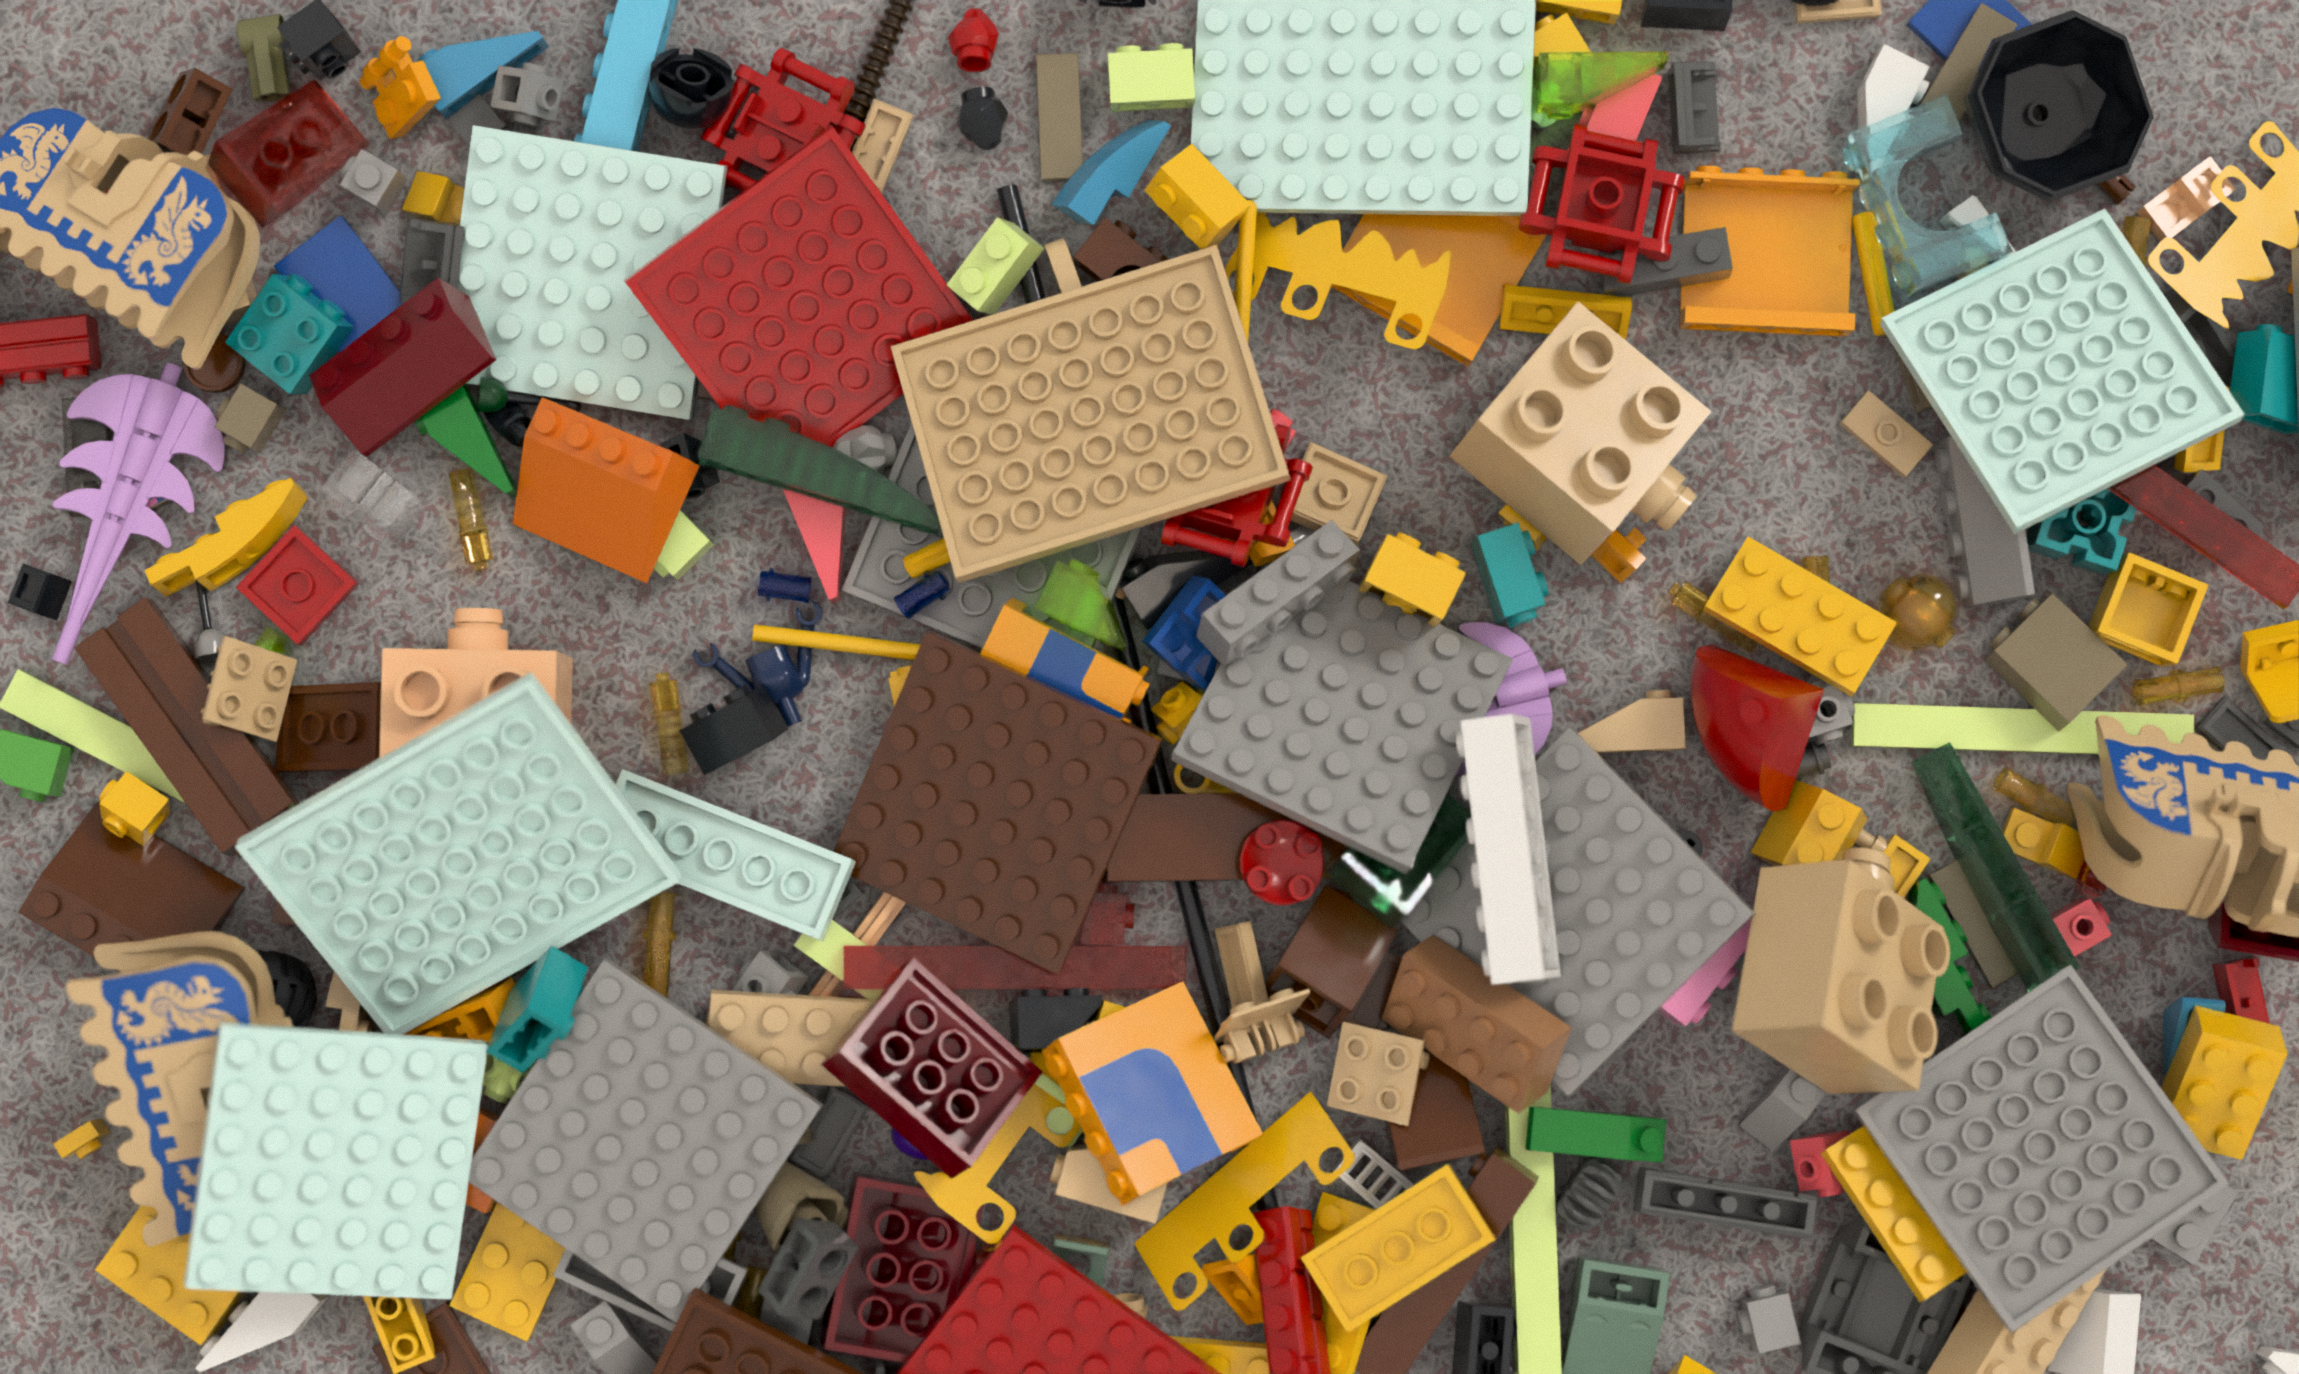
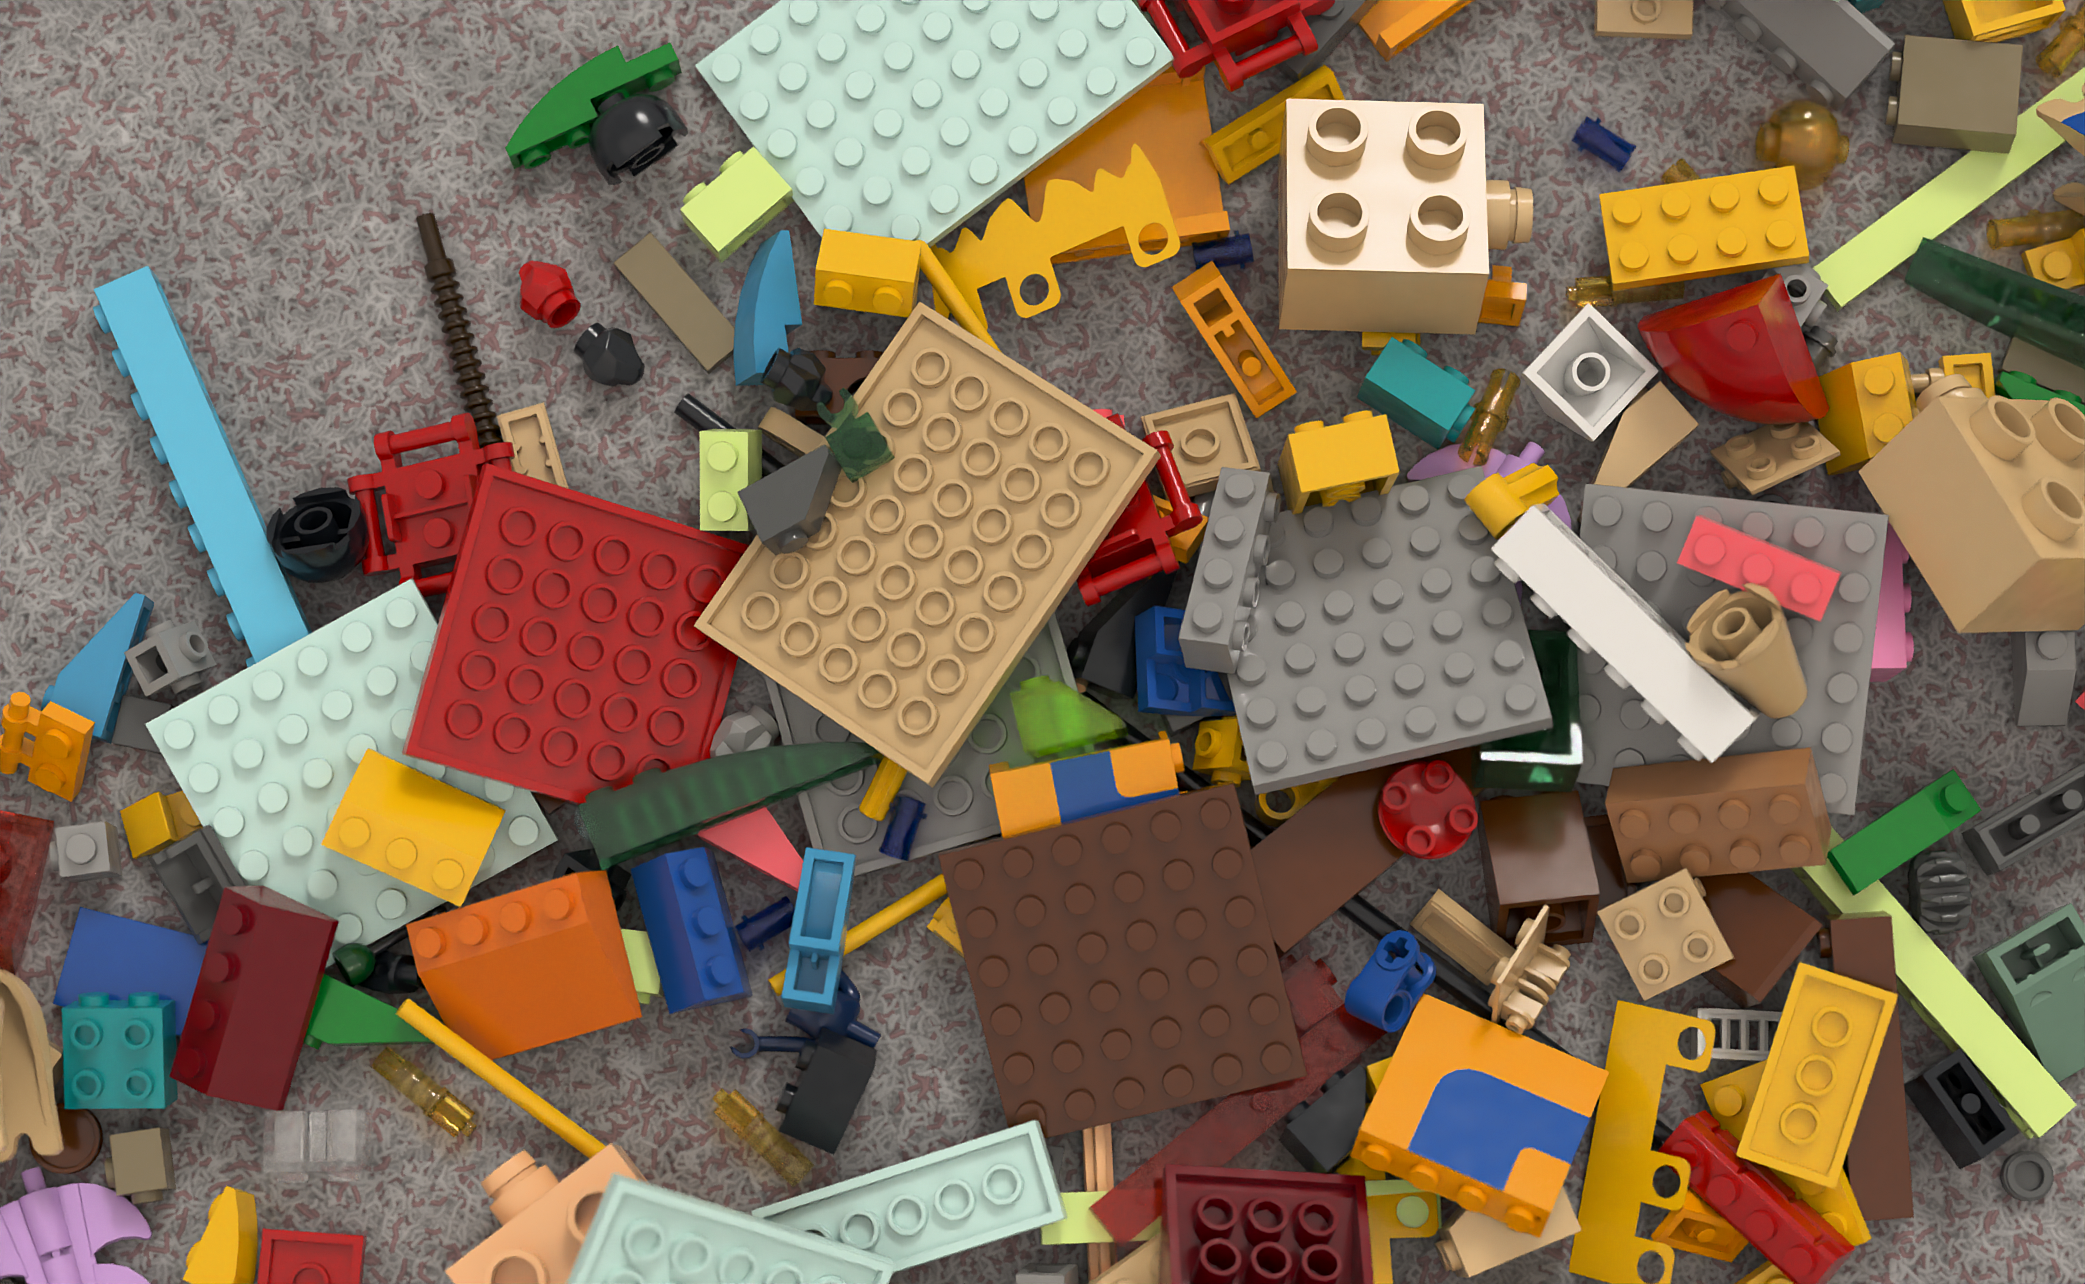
camera: 40 degrees left, 5 degrees down
(524, 549) = (499, 1078): none -> yellow piece
(595, 336) = (413, 827): none -> yellow slope
(728, 551) = (691, 930): none -> blue slope
(810, 619) = (819, 931): none -> dark azure slope
(1020, 314) = (792, 500): none -> dark grey slope
(1091, 234) = (797, 379): none -> black rock
(1097, 308) = (857, 440): none -> clear green plate
(1163, 961) = (1389, 986): none -> blue piece
(1415, 437) = (1234, 339): none -> light orange slope
(1457, 372) = (1224, 251): none -> clear blue pin
(1504, 694) = (1504, 500): none -> yellow piece
(1547, 629) = (1489, 417): none -> clear yellow pin
(1580, 928) = (1749, 649): none -> tan cone
(1635, 878) = (1745, 559): none -> coral brick
(1637, 653) = (1587, 374): none -> white slope
(1718, 809) = (1772, 455): none -> tan hinge
(1781, 503) = (1603, 143): none -> clear blue pin

